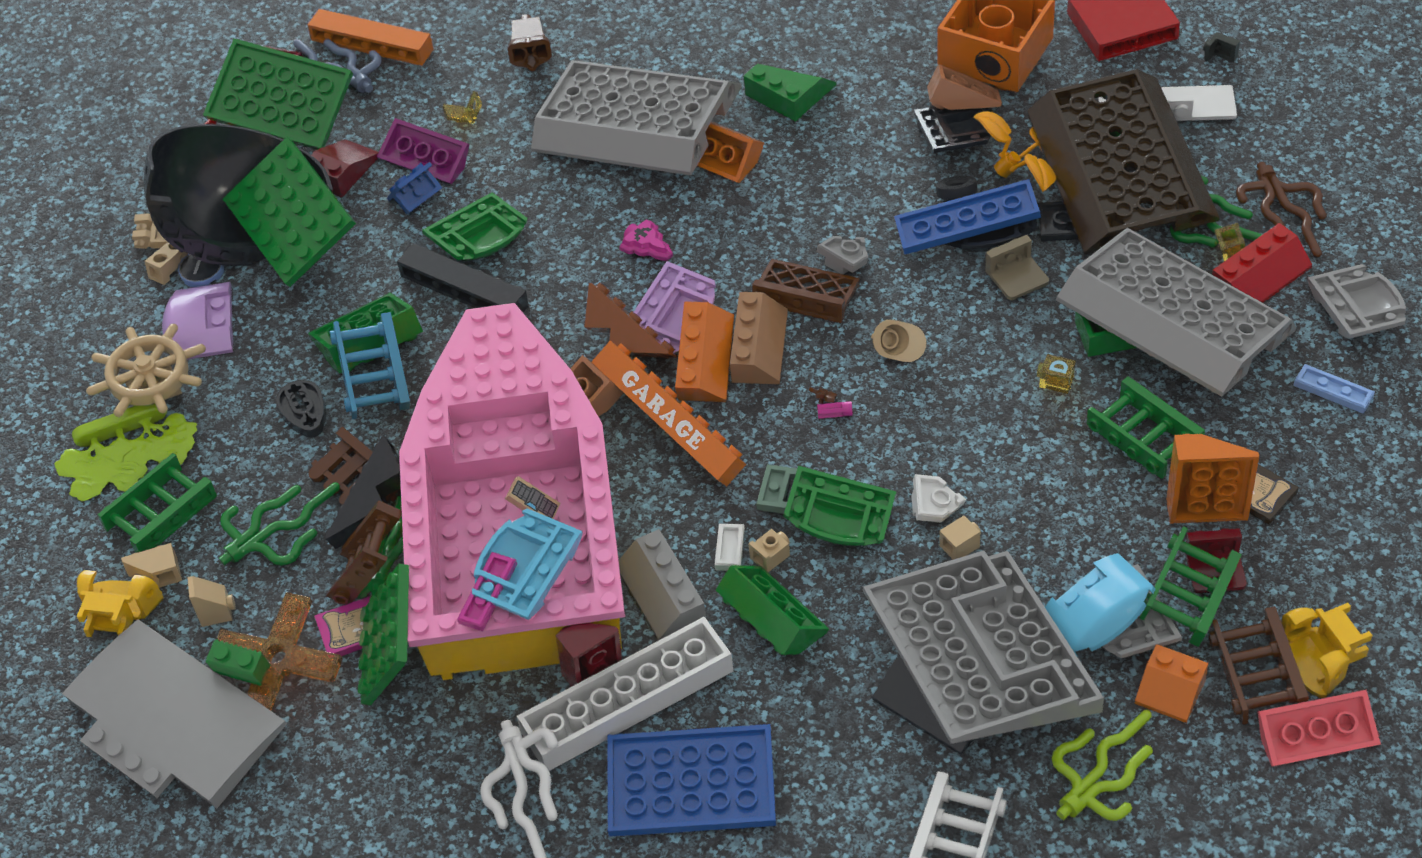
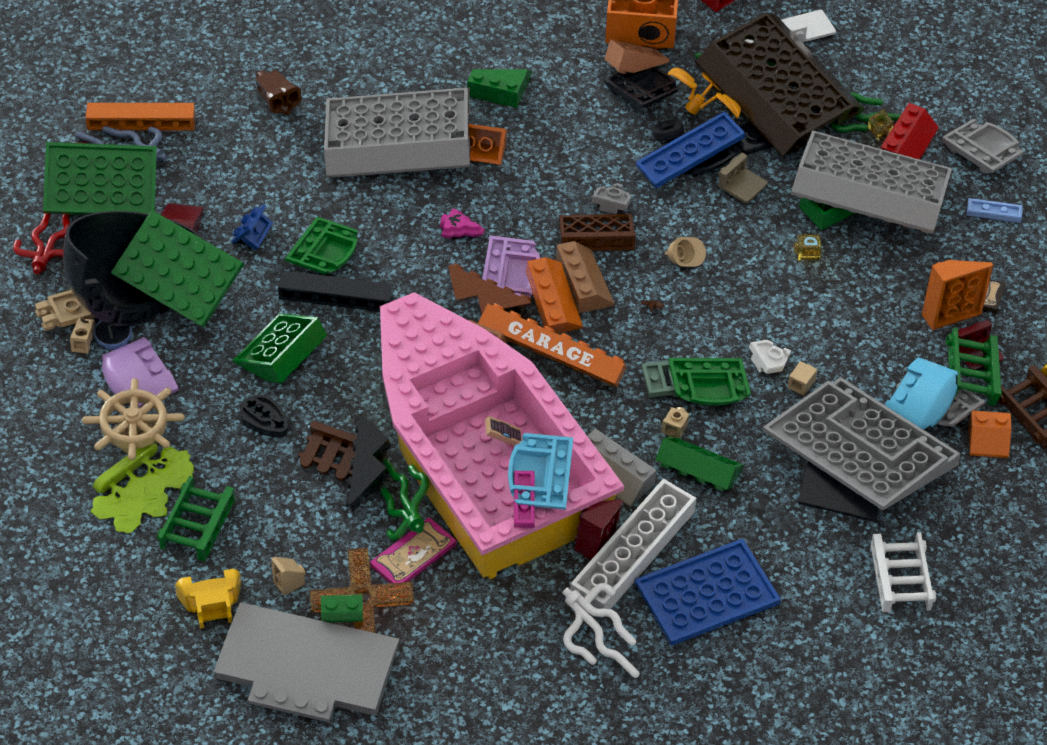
camera: 30 degrees left, 0 degrees up
(156, 563) = (225, 558): tan slope -> none
(252, 539) = (284, 525): green plant -> none
(363, 554) = (383, 500): reddish brown fence -> none
(384, 635) = (448, 555): green plate -> none
(388, 350) = (319, 354): dark azure fence -> none
(411, 145) = (240, 196): magenta slope -> none
(463, 113) = (255, 160): clear yellow bracket -> none
(729, 546) = (644, 429): white tile -> none
(837, 409) = (666, 313): dark pink piece -> none
(1086, 789) = (967, 520): lime plant -> none
(1149, 407) = (889, 255): green fence -> none
(1273, 186) = (889, 79): reddish brown plant -> none

